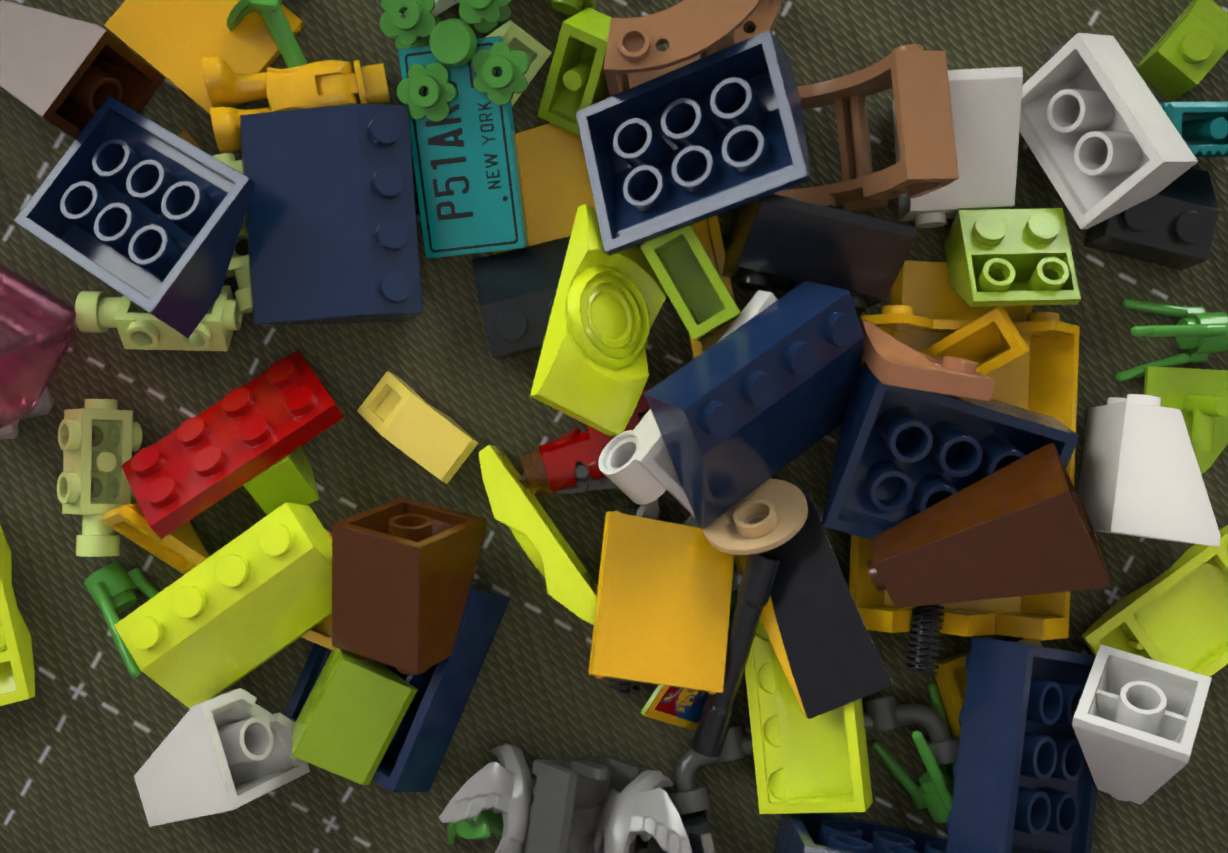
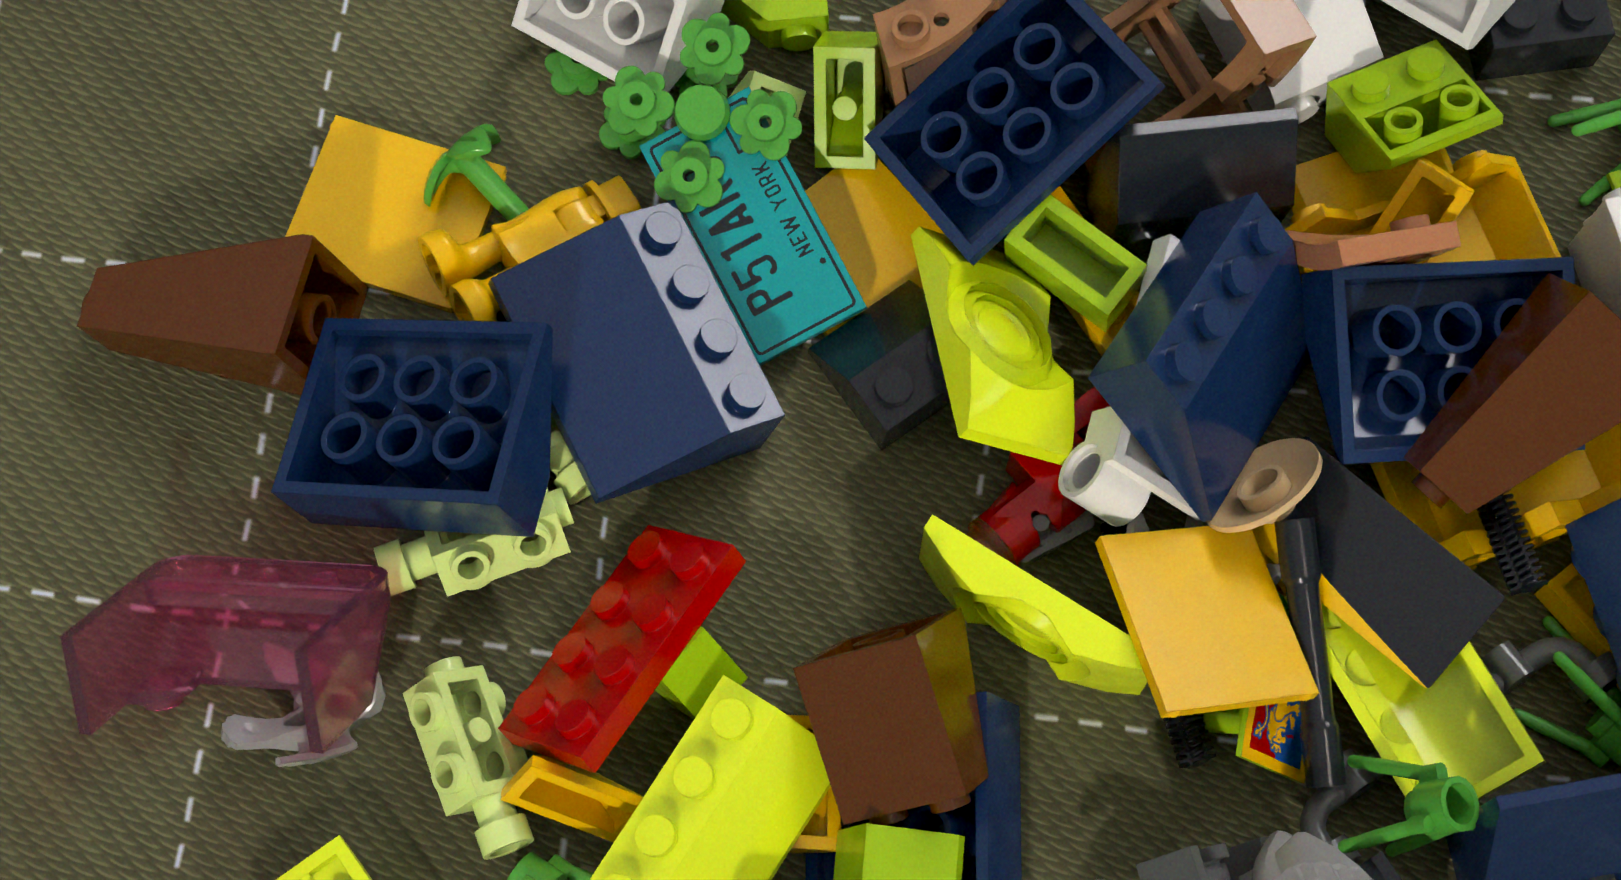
camera: 25 degrees left, 15 degrees down
(417, 427) = (827, 552): light yellow slope -> none
(763, 814) = (1432, 809): none -> bright green plant

